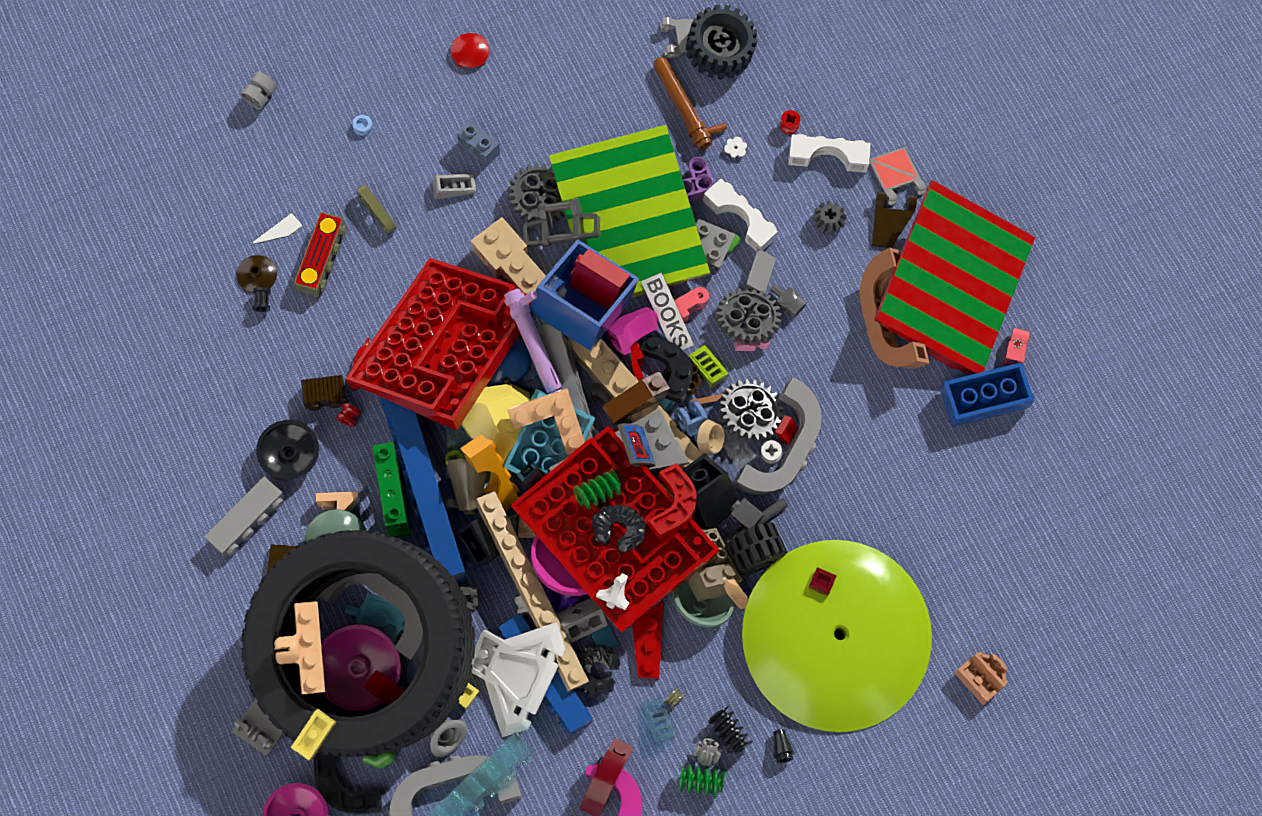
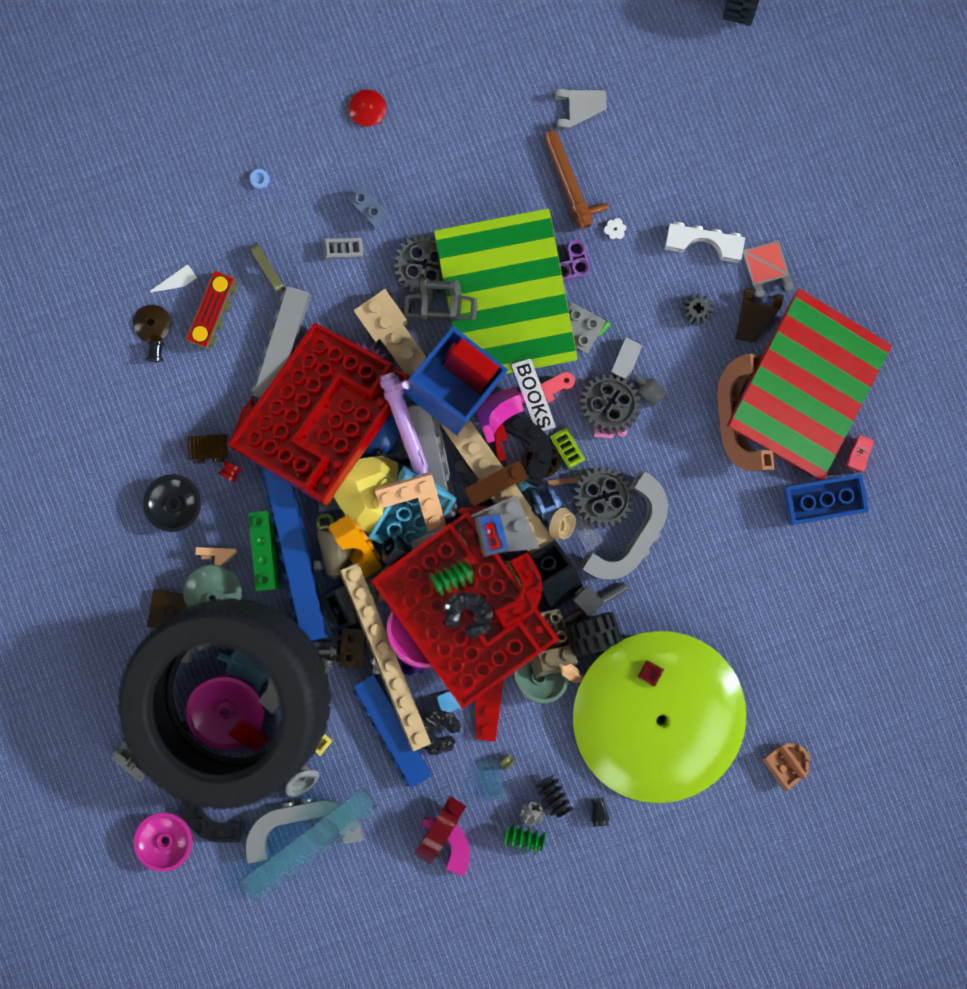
camera: 10 degrees right, 15 degrees up
(245, 517) = (131, 562): light grey brick -> none
(260, 88) = (161, 137): light grey wheel -> none
(304, 648) = (173, 715): light nougat plate -> none
(313, 734) = (178, 790): light yellow plate -> none
(397, 273) = (283, 337): none -> light grey brick
(493, 589) = (352, 648): none -> dark brown brick
(517, 672) = (368, 729): white plate -> none
(581, 620) = (426, 686): light grey brick -> none
(615, 594) = (459, 675): white piece -> none
(723, 199) = (597, 282): white arch -> none
(724, 28) = (614, 103): black wheel -> none
(771, 456) = (618, 538): white wheel -> none
(786, 430) = (634, 518): red tile -> none
(787, 126) = (668, 210): red wheel -> none

